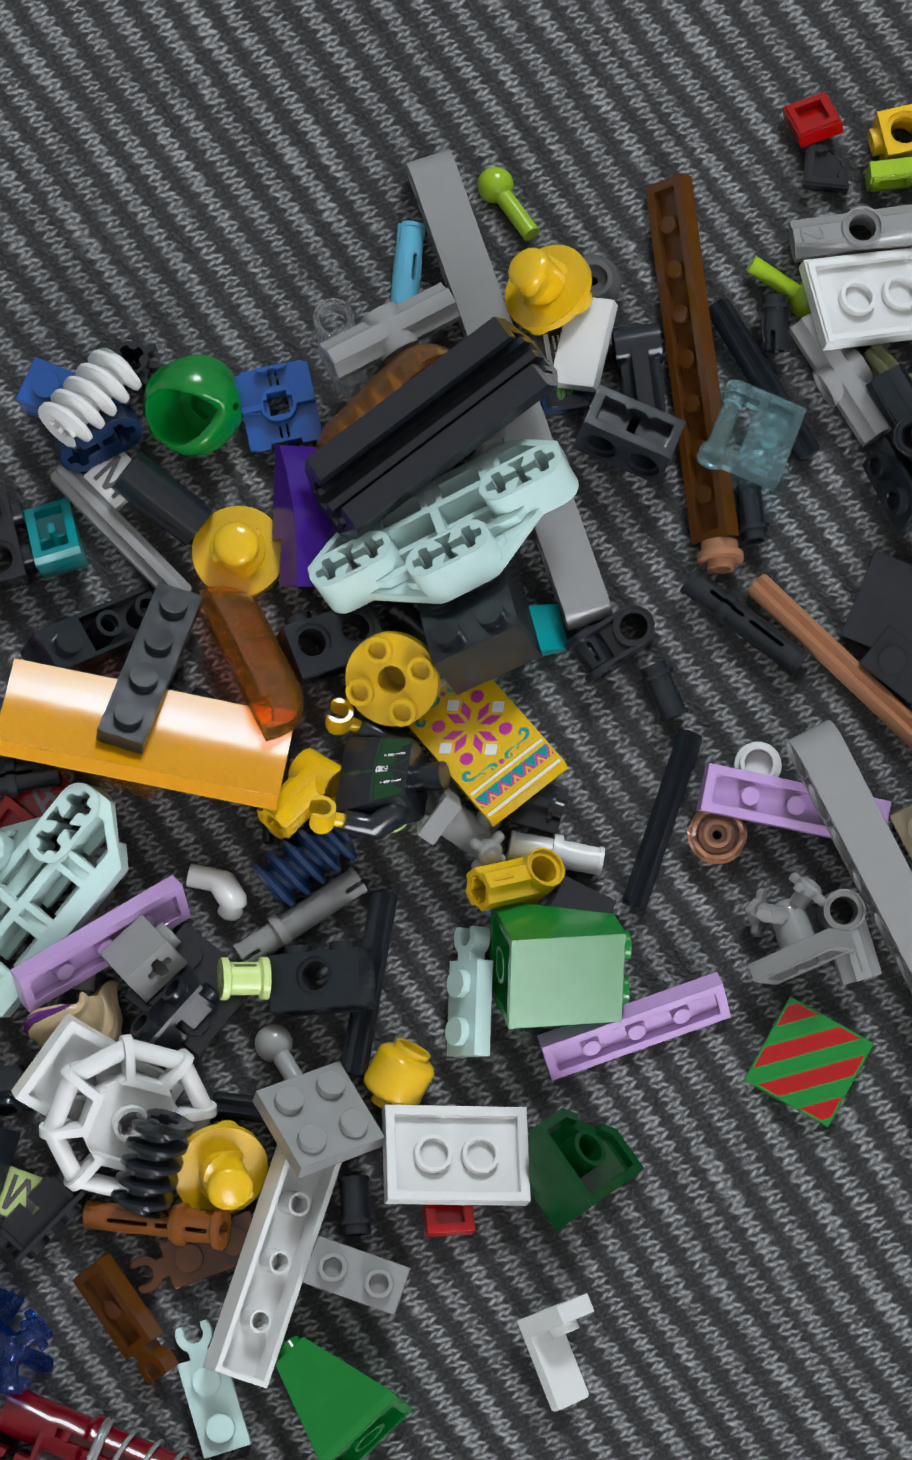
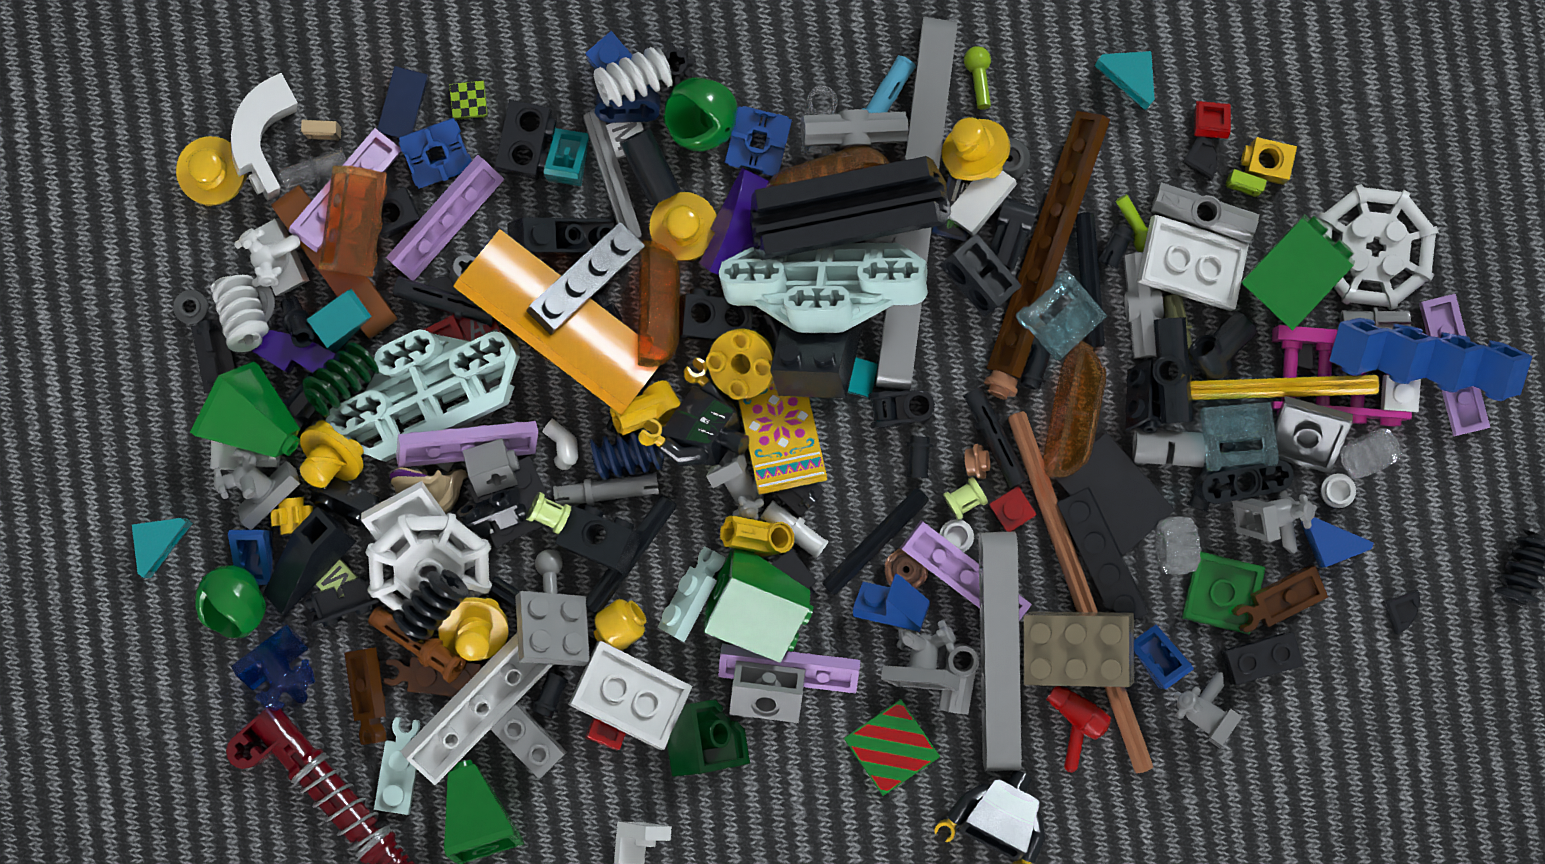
camera: 25 degrees right, 5 degrees up
(622, 1067) = (767, 691): none -> light grey brick
(688, 112) = (1131, 73): none -> teal slope
(730, 883) = (894, 605): none -> blue slope
(737, 661) = (977, 461): none -> nougat plate
(745, 713) = (965, 498): none -> yellowish green bush
(809, 699) = (1012, 509): none -> red plate
(825, 543) = (1074, 412): none -> clear orange brick

